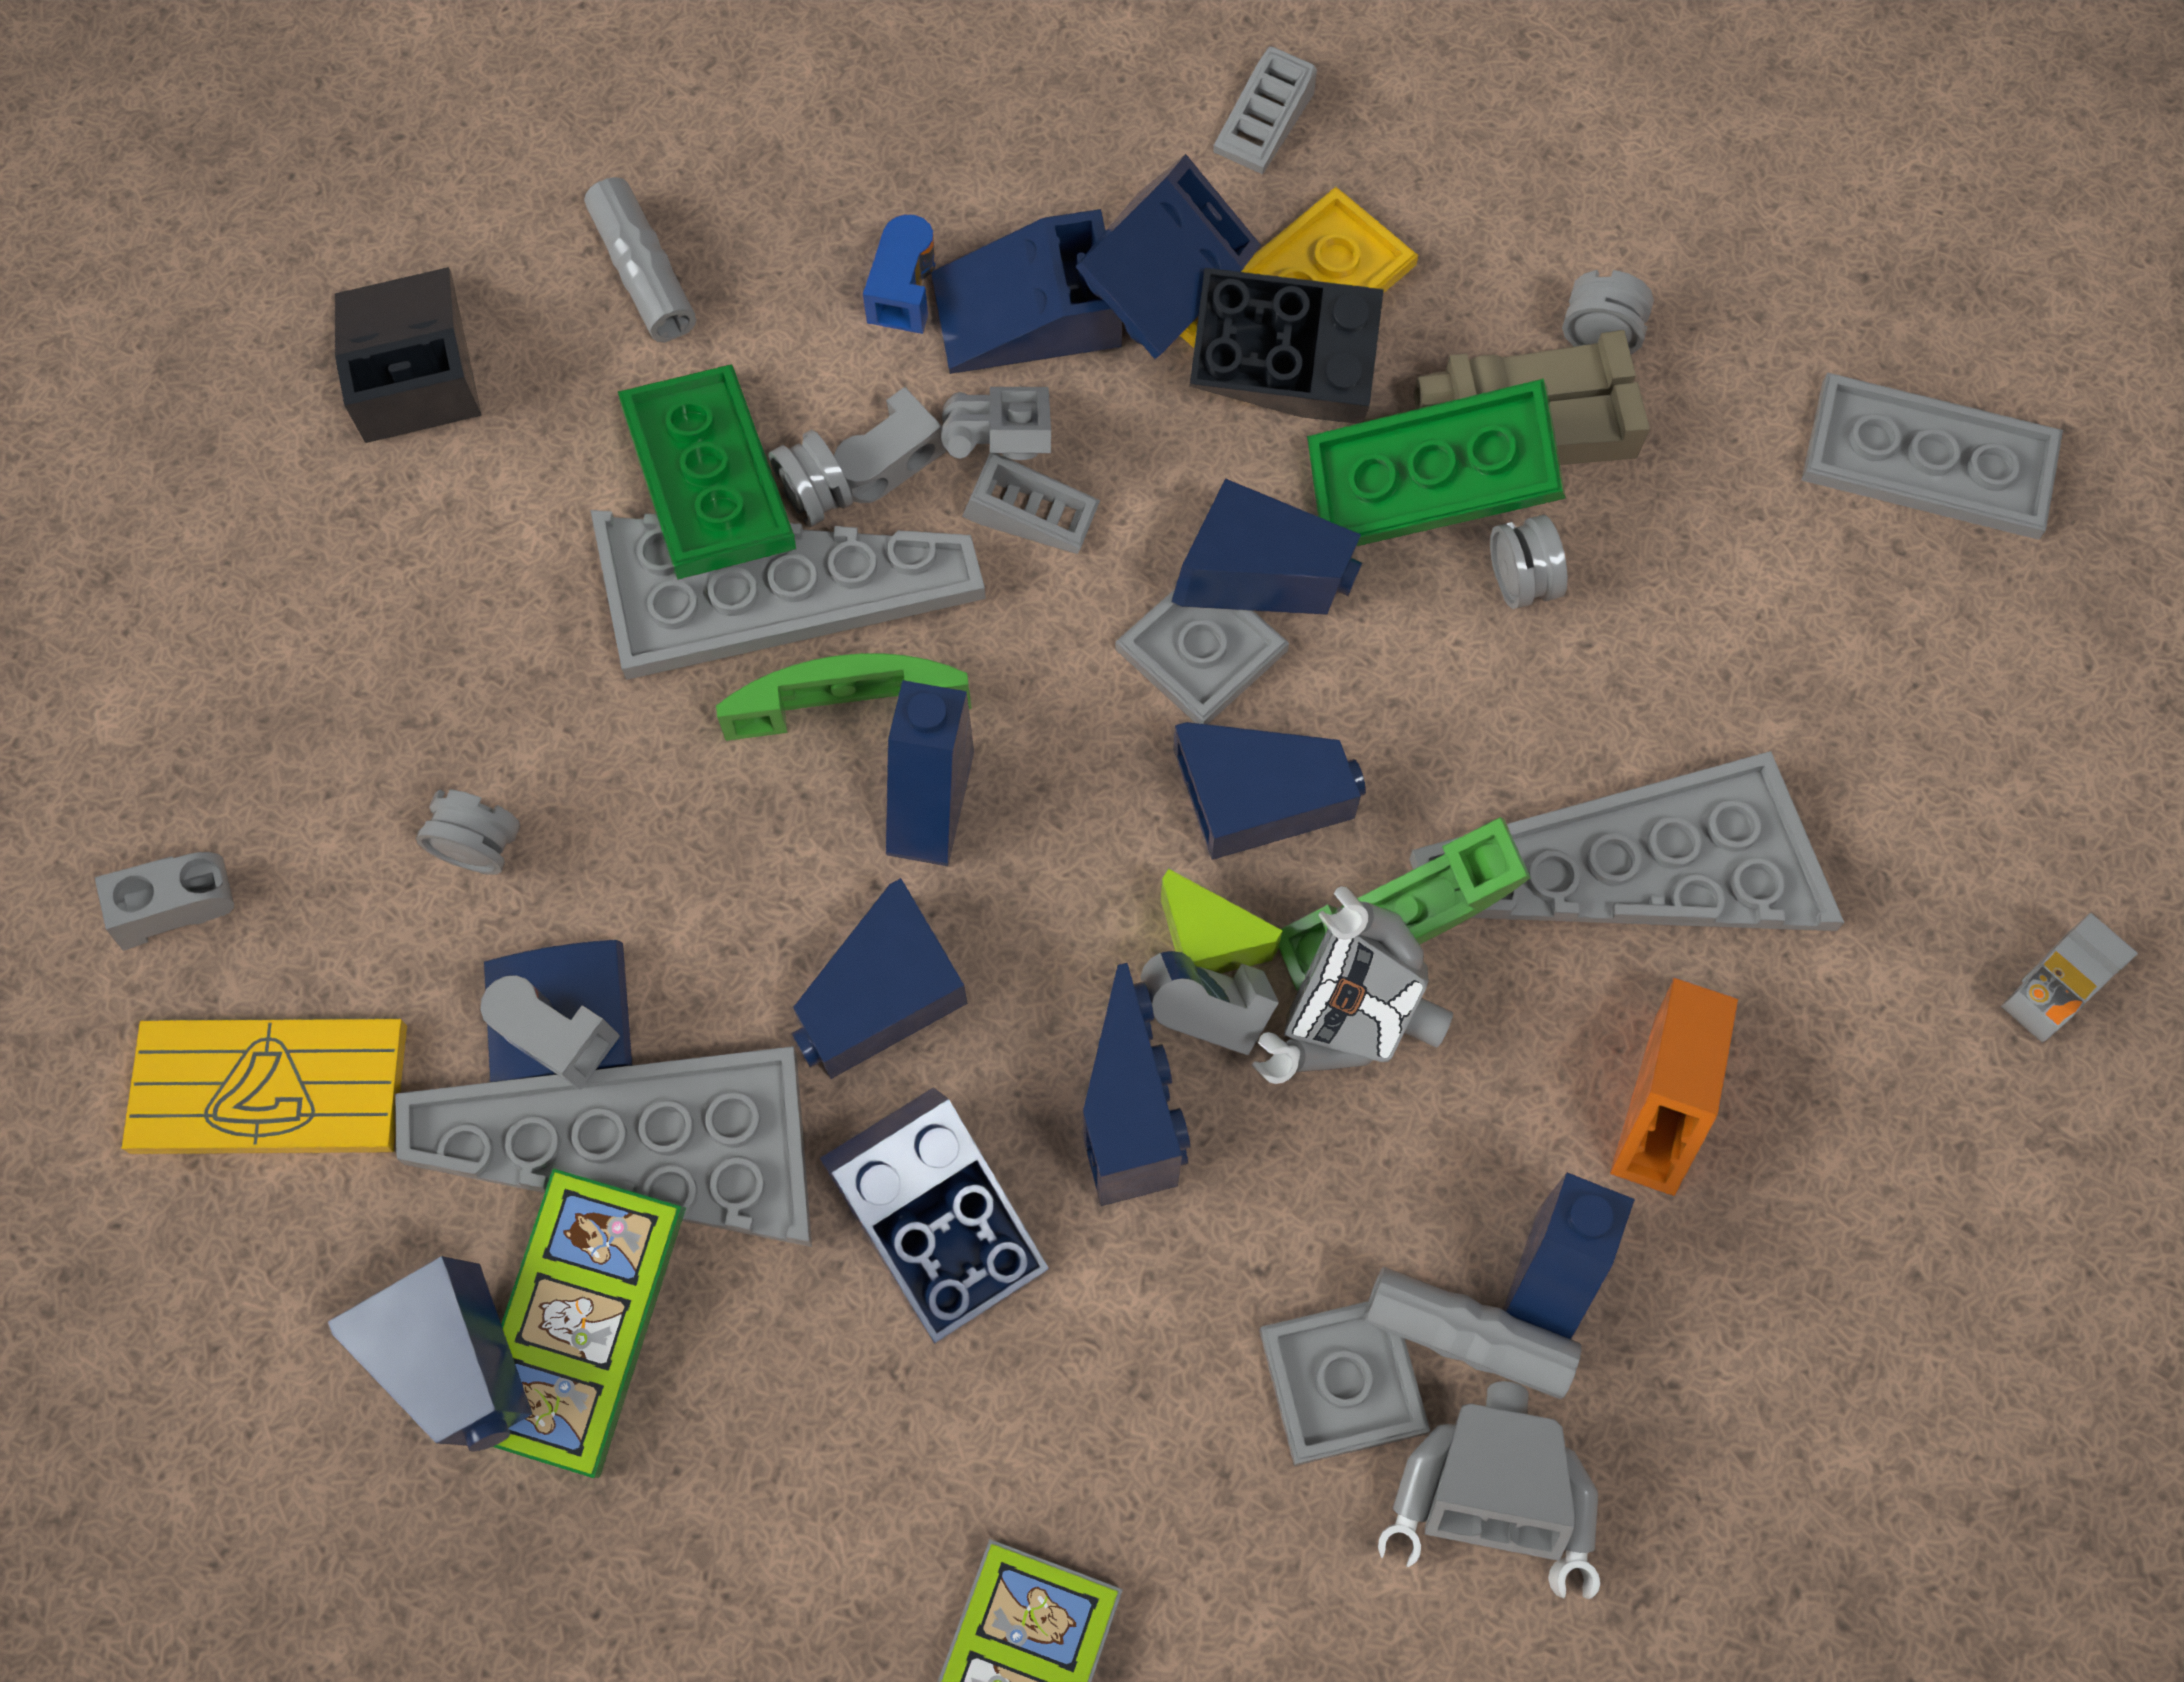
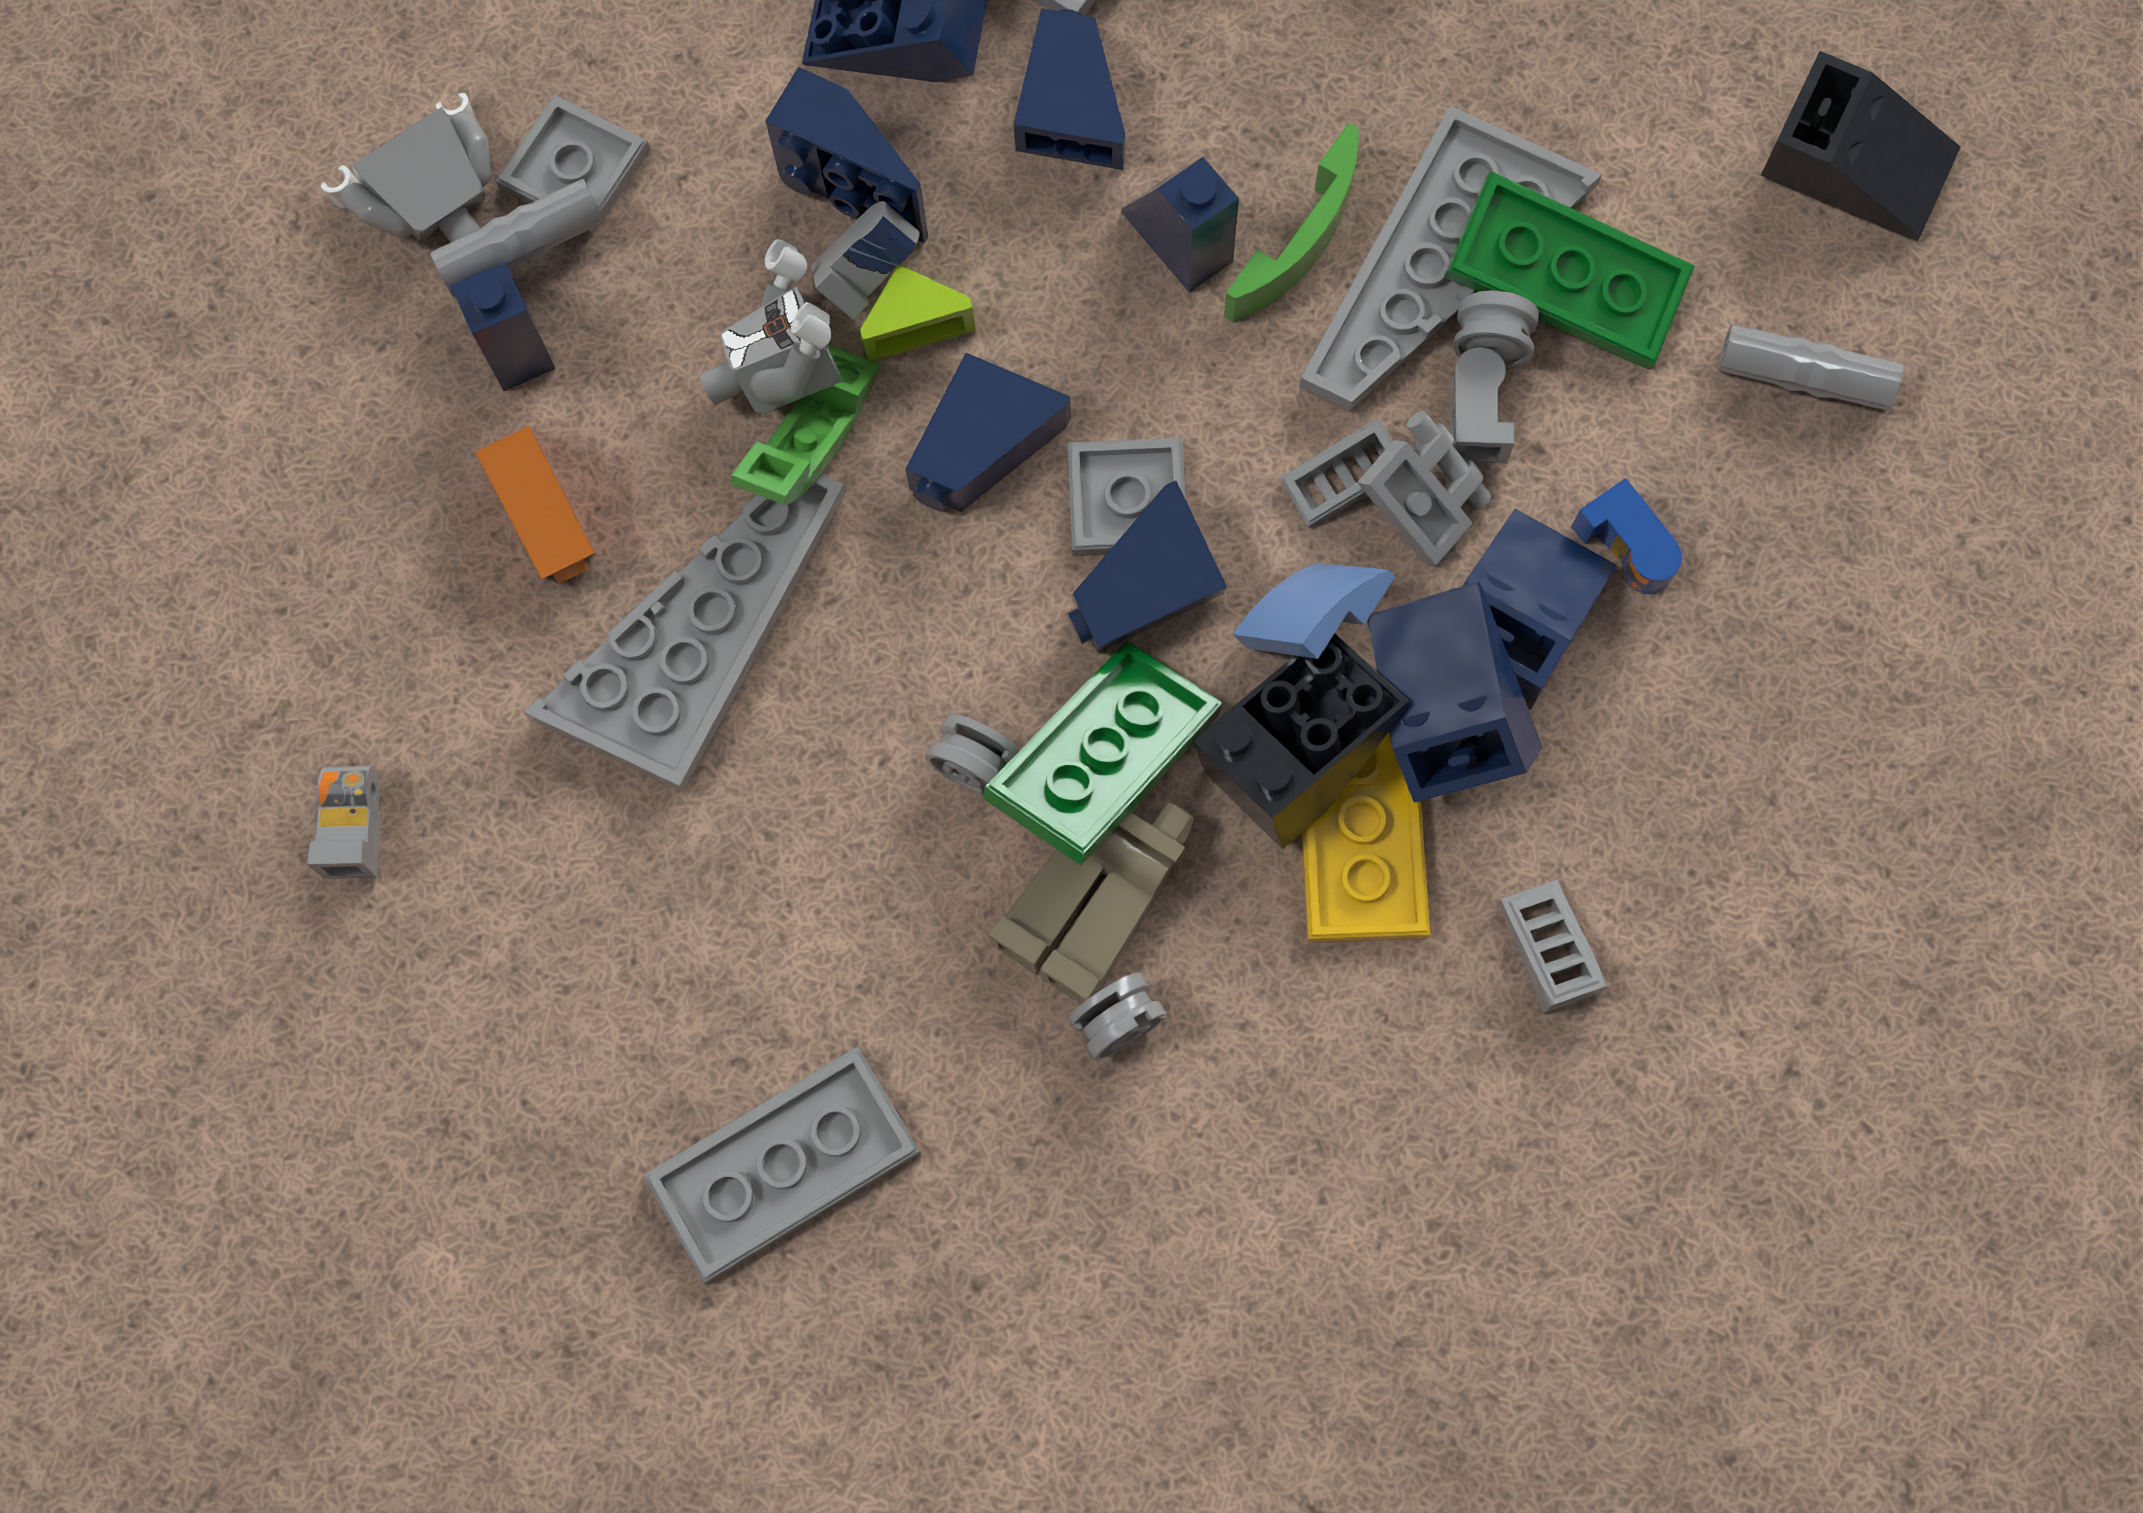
camera: 135 degrees right, 5 degrees up
(1179, 414) = (1310, 606): none -> medium blue slope

